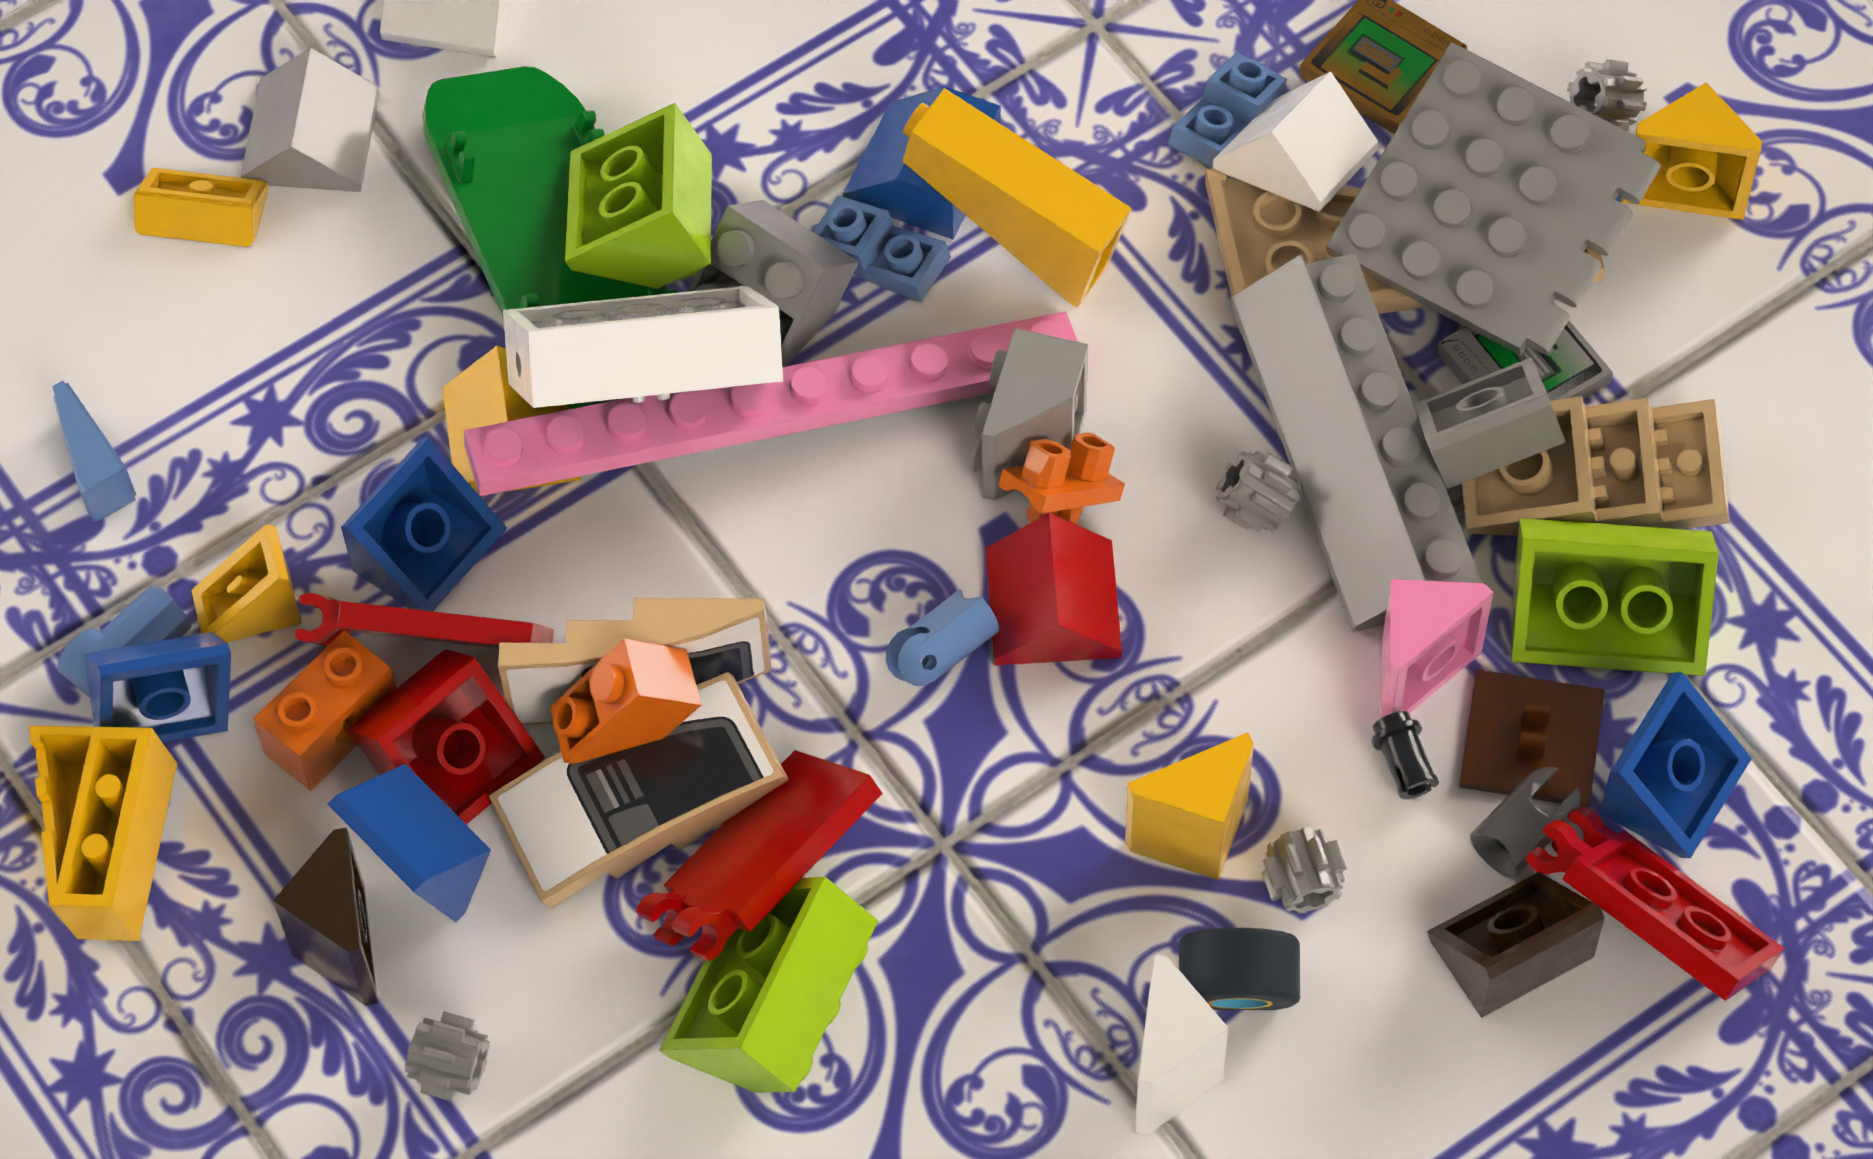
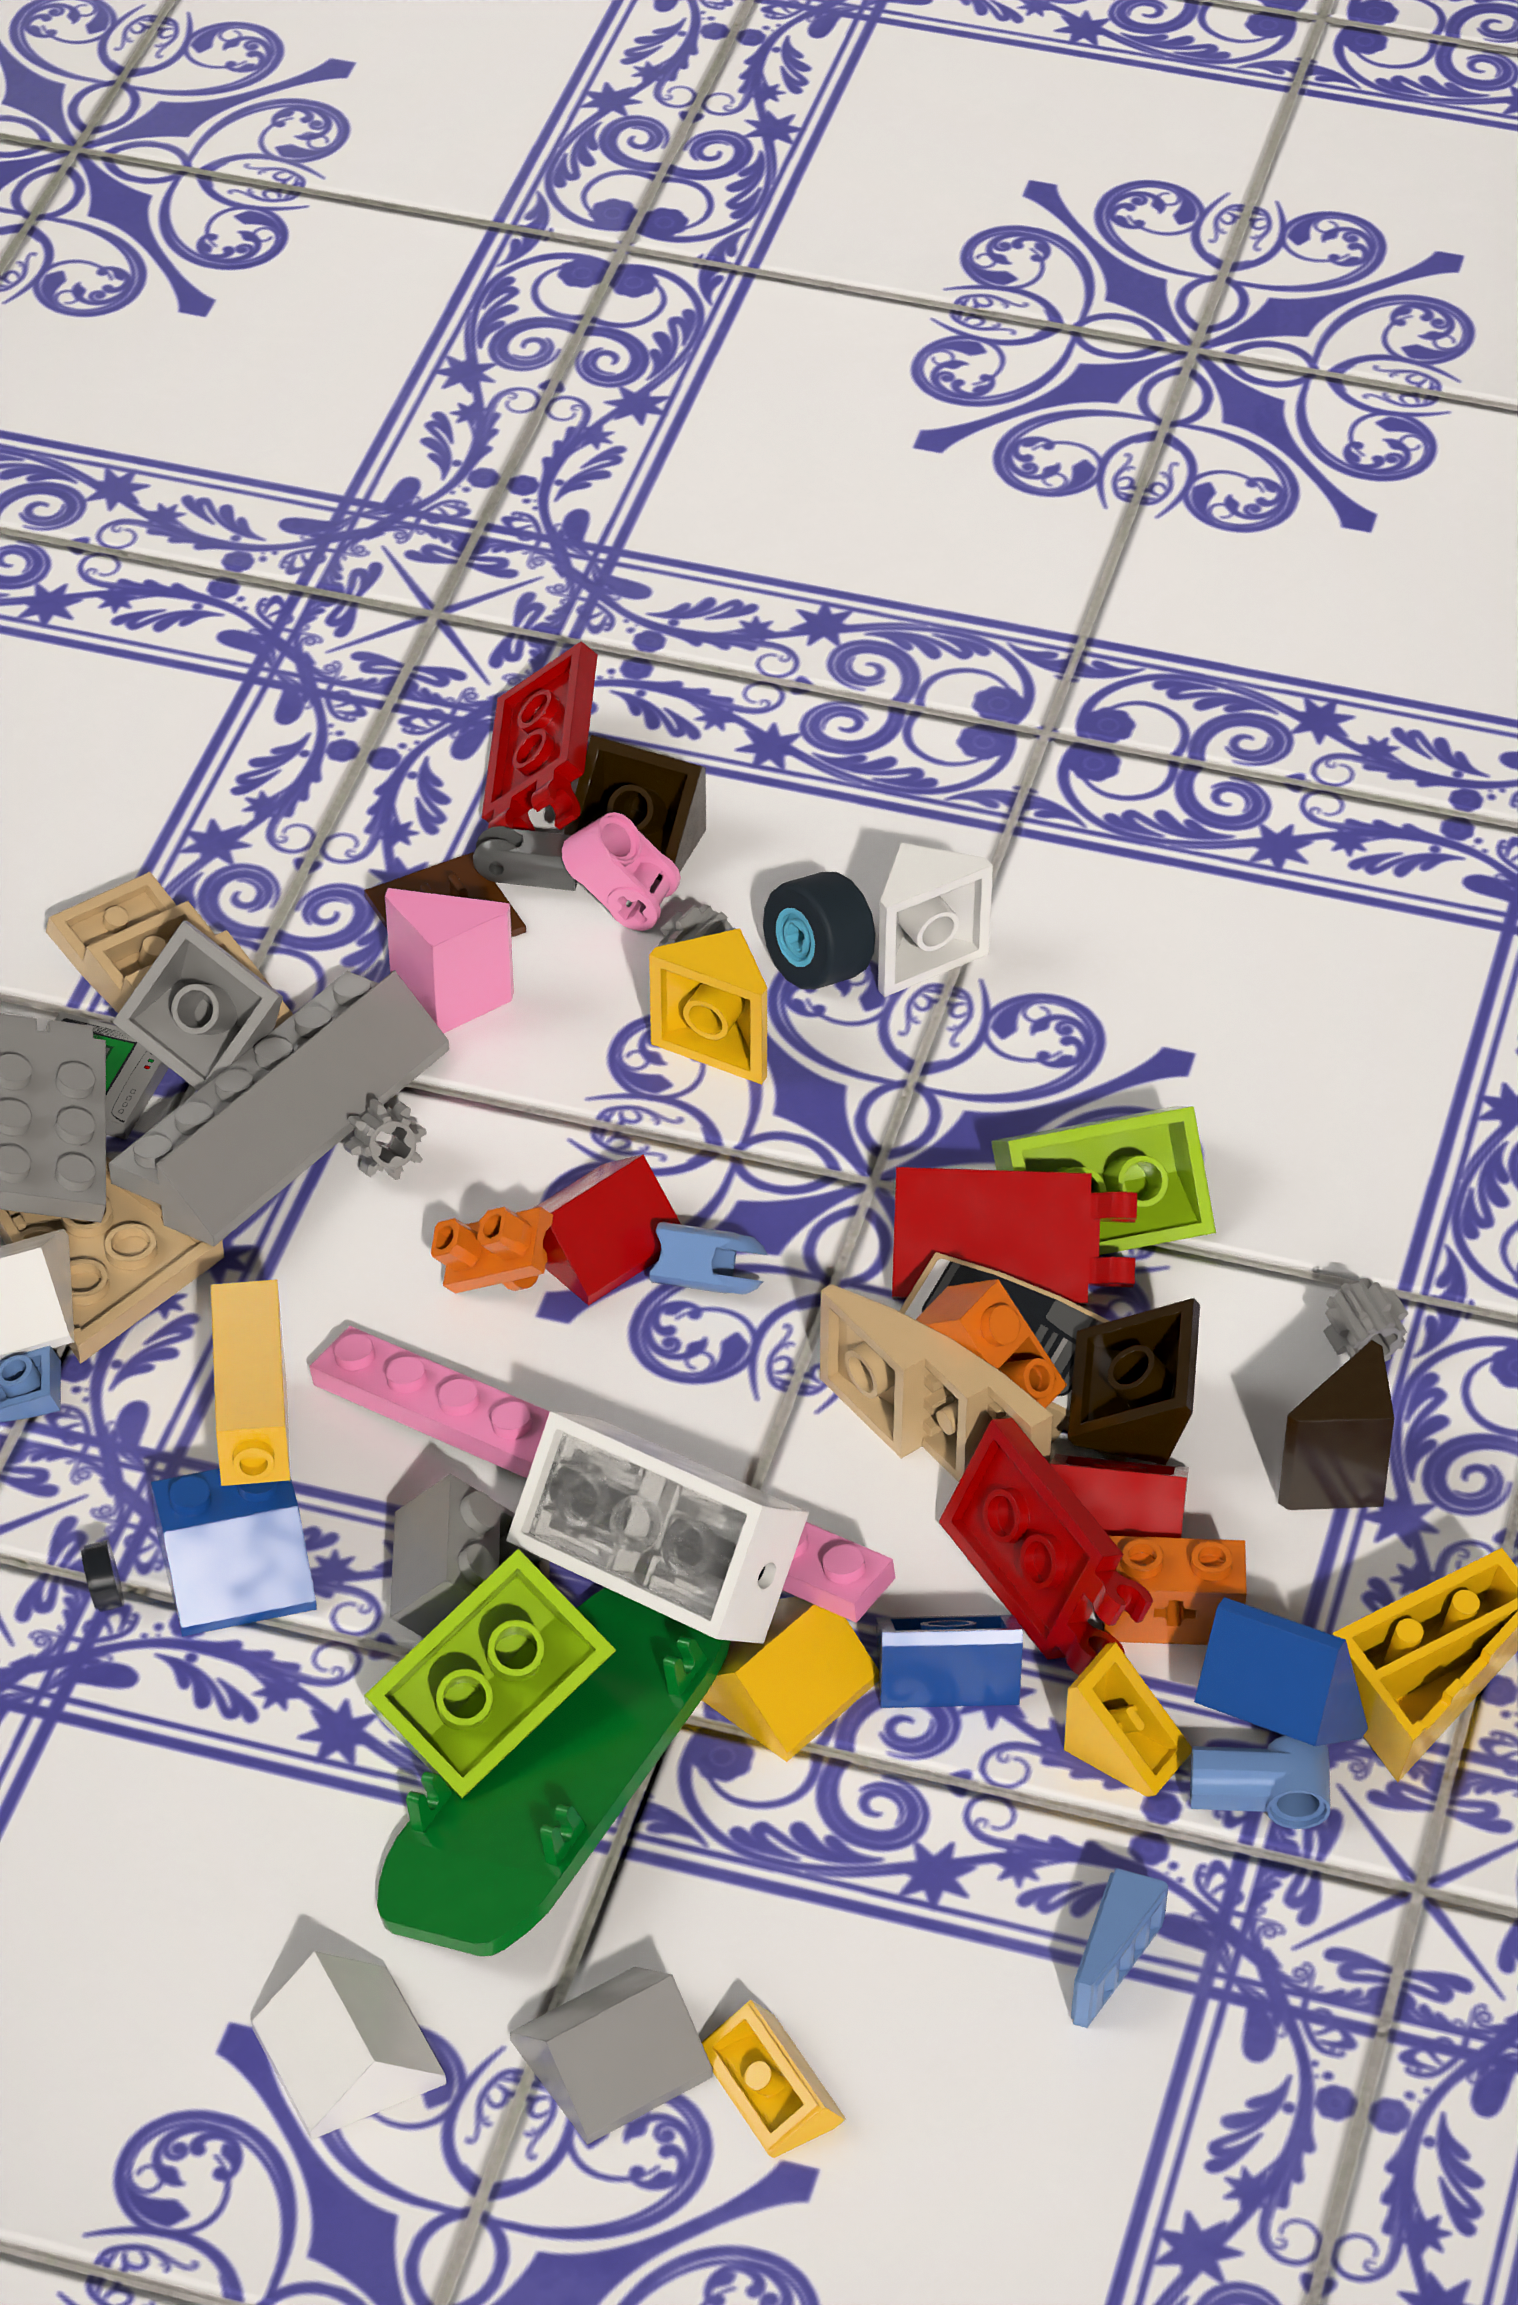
camera: 130 degrees left, 15 degrees down
(416, 837) = (1236, 1424): blue slope -> none
(522, 807) = (1136, 1382): none -> dark brown slope
(886, 254) = (353, 1533): medium blue slope -> none
(968, 68) = (102, 1576): none -> black tile
(1035, 397) = (457, 1289): light grey slope -> none
(1404, 753) = (539, 953): black pin -> none
(1431, 872) = (619, 867): none -> bright pink piece
(1613, 596) = (277, 906): lime slope -> none
(1675, 771) = (410, 817): blue slope -> none

